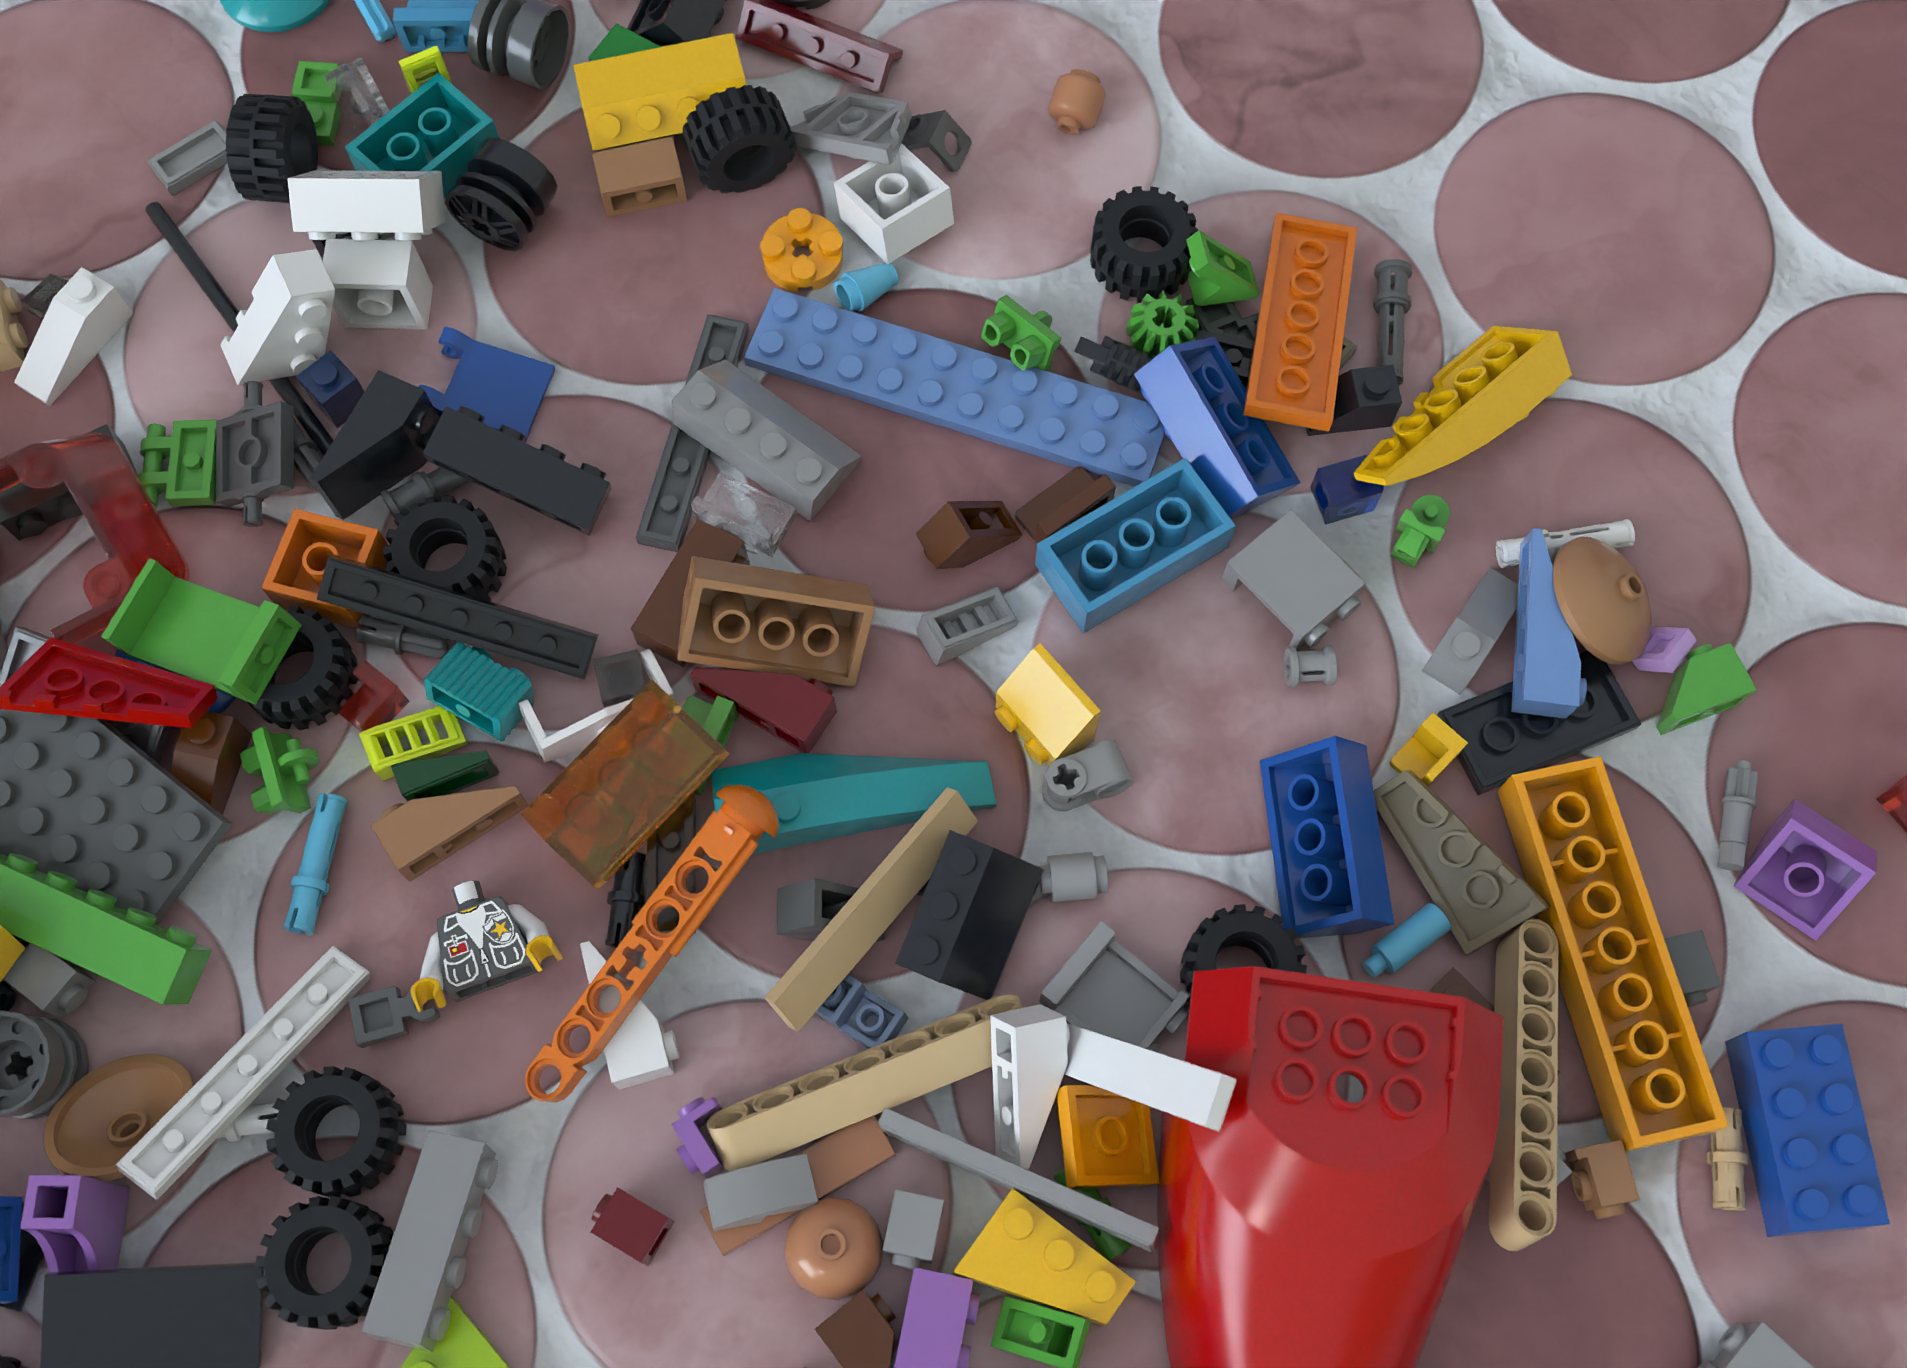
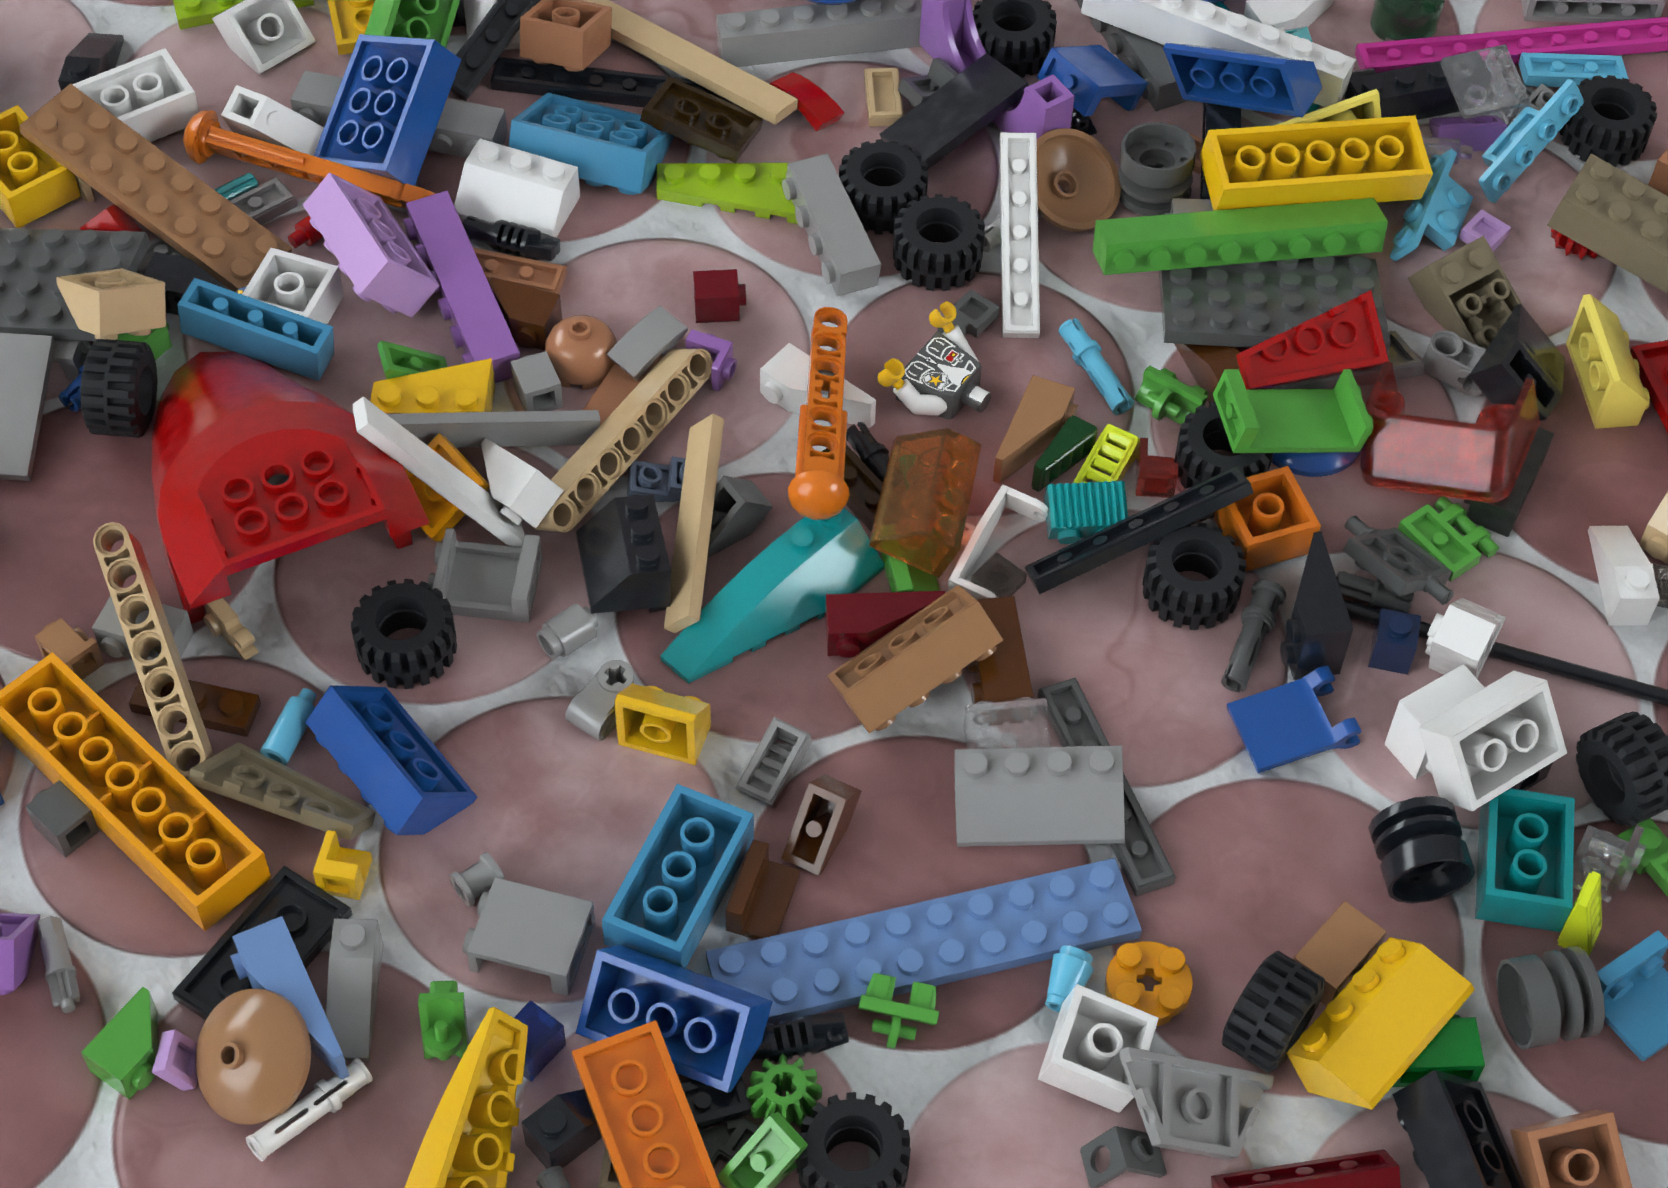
camera: 145 degrees right, 15 degrees down
(518, 470) = (1195, 649): black brick -> none

